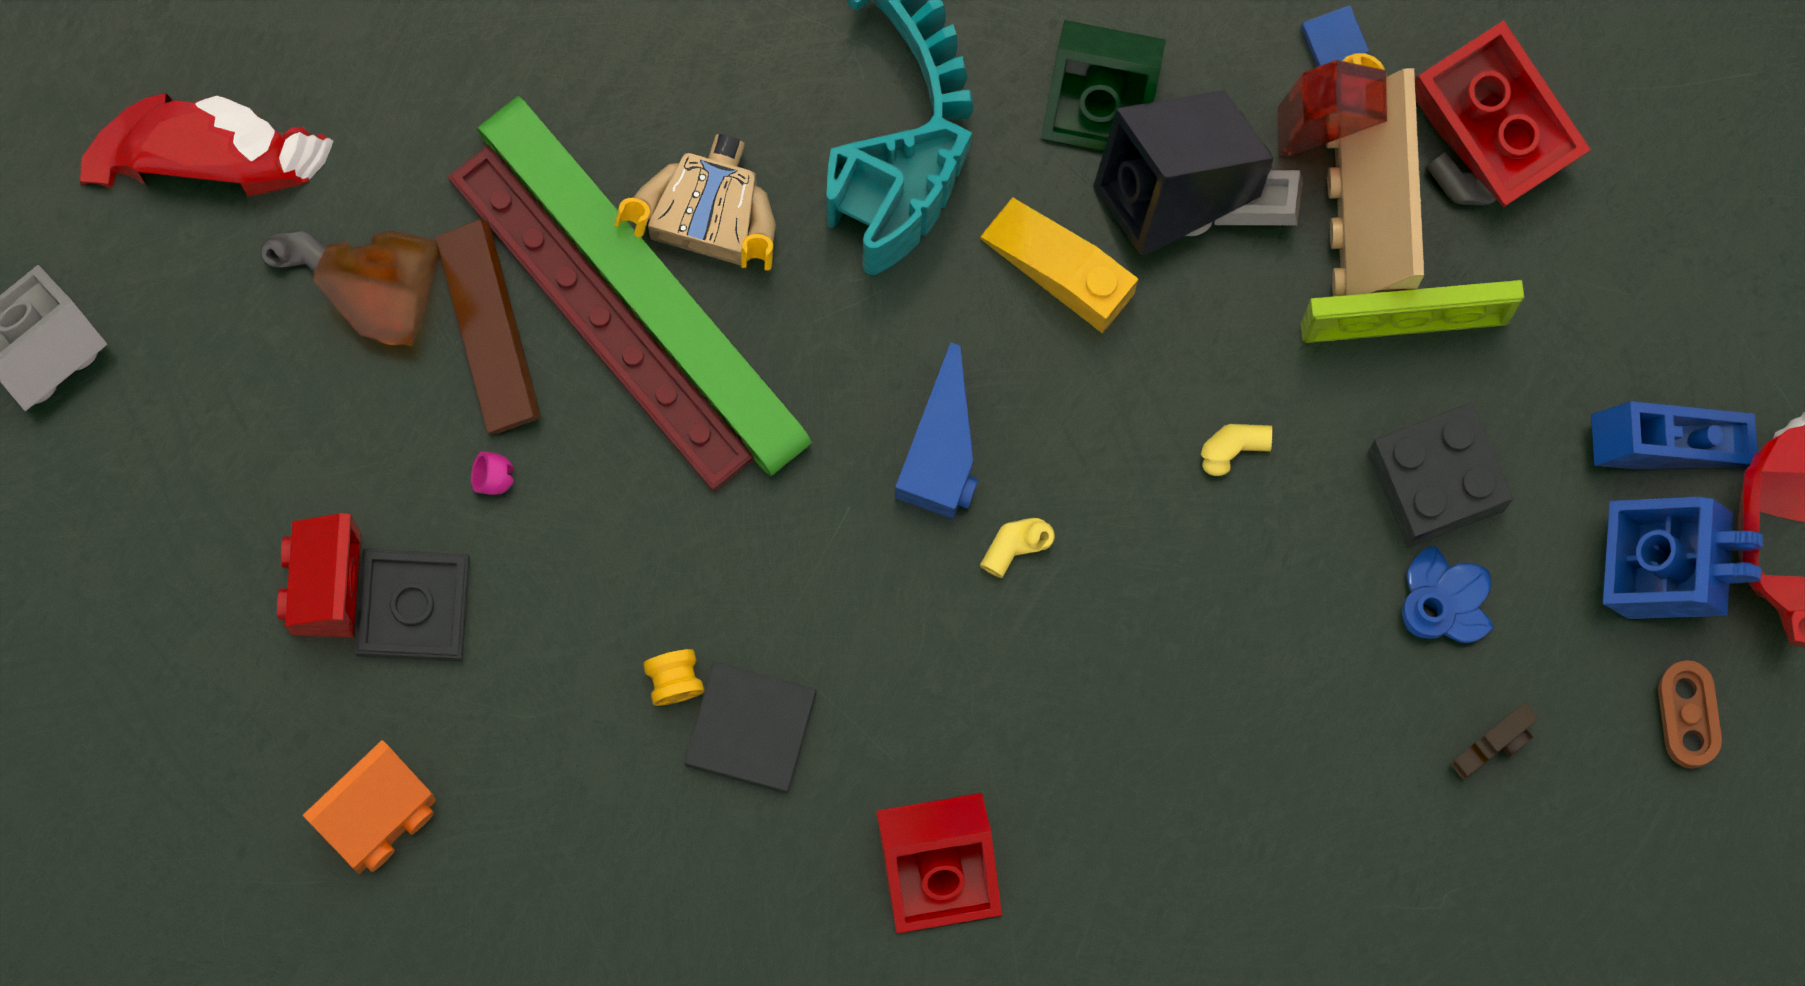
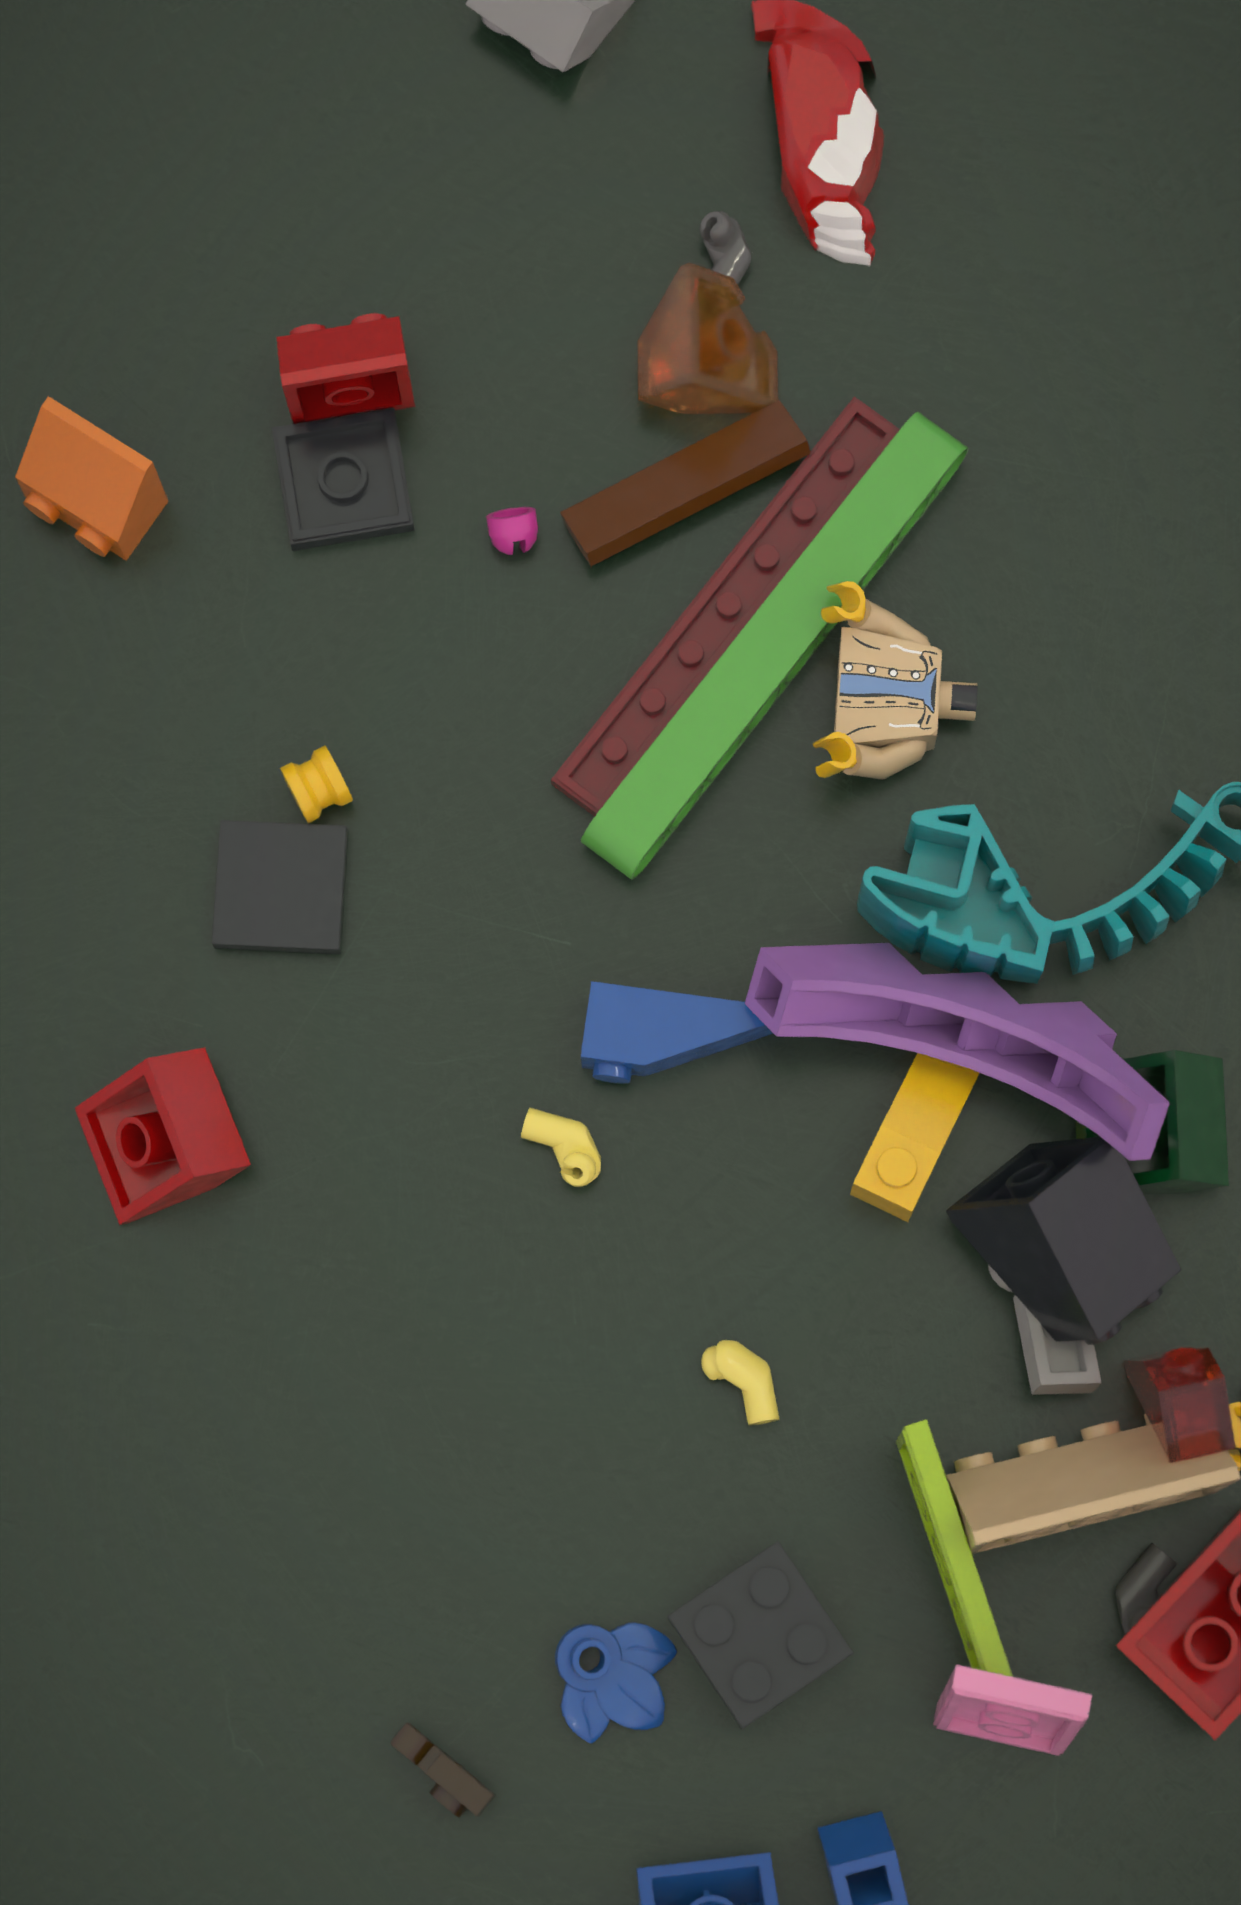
camera: 85 degrees right, 0 degrees up
(1030, 149) = (962, 1018): none -> medium lavender arch
(1542, 291) = (1011, 1710): none -> bright pink tile

